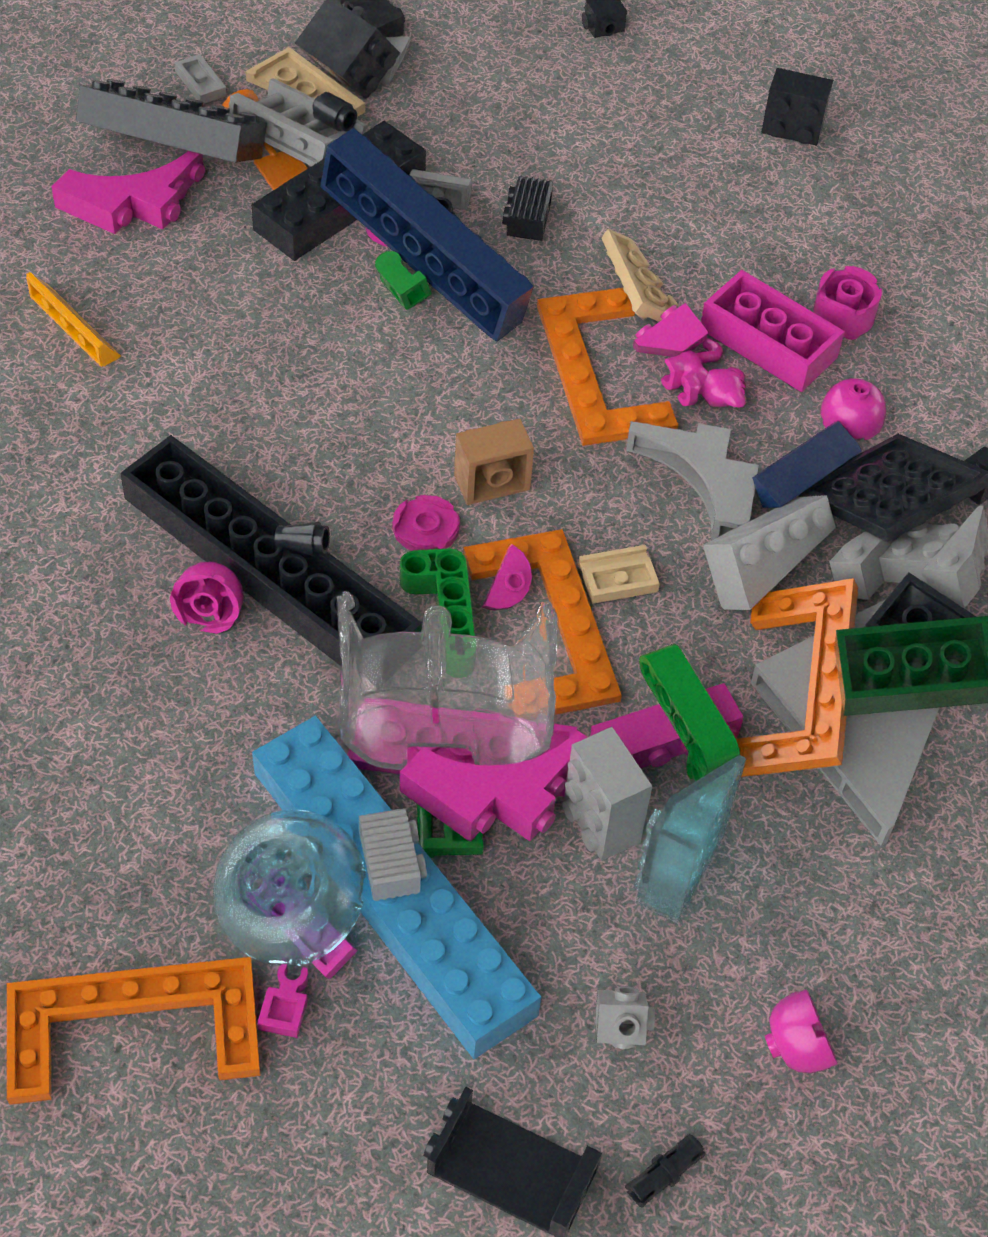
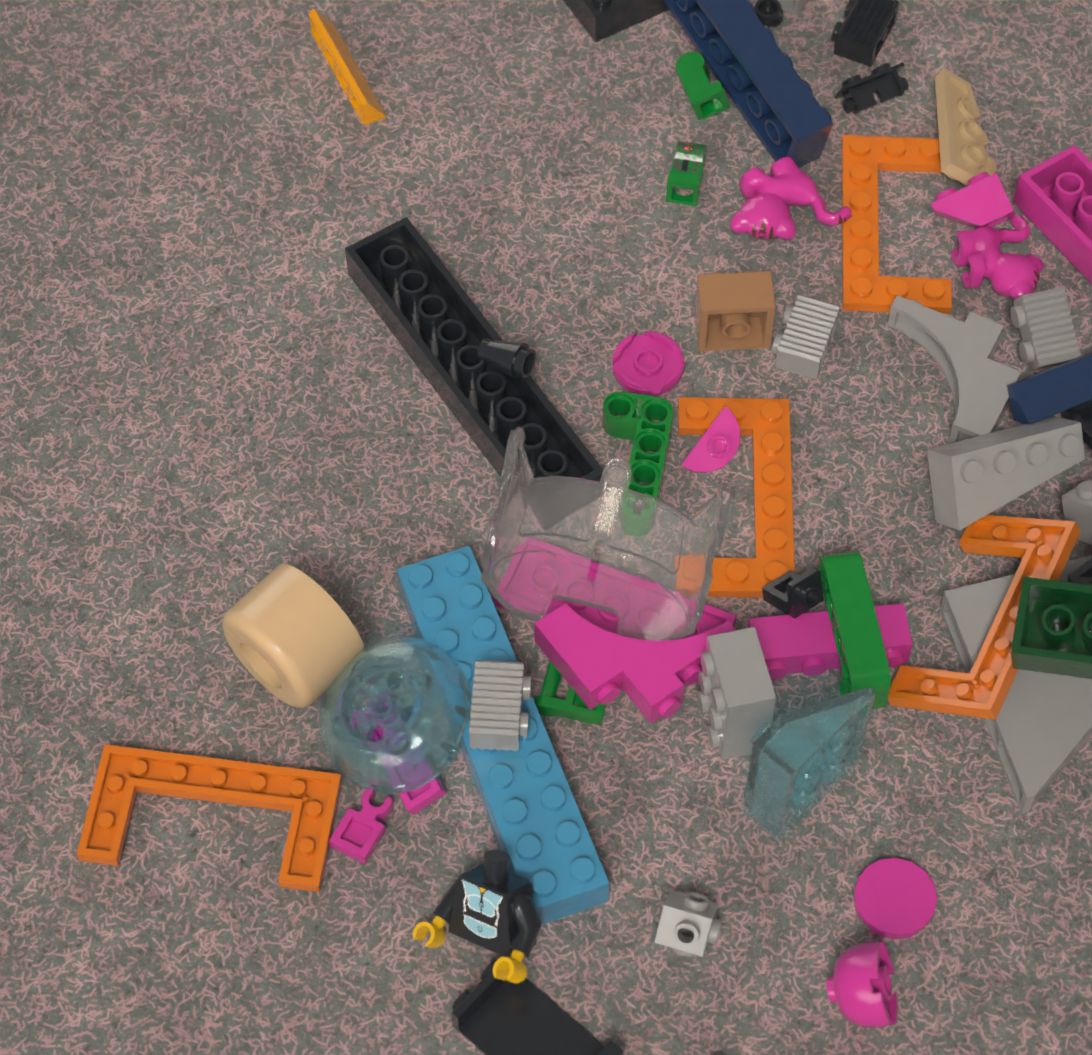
camera: 20 degrees right, 5 degrees up
(170, 834) = (291, 636): none -> tan piece
(207, 591) = (399, 391): dark pink cylinder -> none
(411, 353) = (686, 173): none -> green leg
(437, 1050) = (492, 911): none -> black torso
(493, 361) = (767, 209): none -> dark pink animal
(540, 261) = (859, 91): none -> black hinge
(561, 472) = (806, 336): none -> light grey brick
(618, 574) = (833, 460): tan plate -> none
(625, 695) = (794, 592): none -> black bracket
(766, 425) = (1045, 328): none -> light grey brick
(798, 948) = (895, 898): none -> dark pink tile

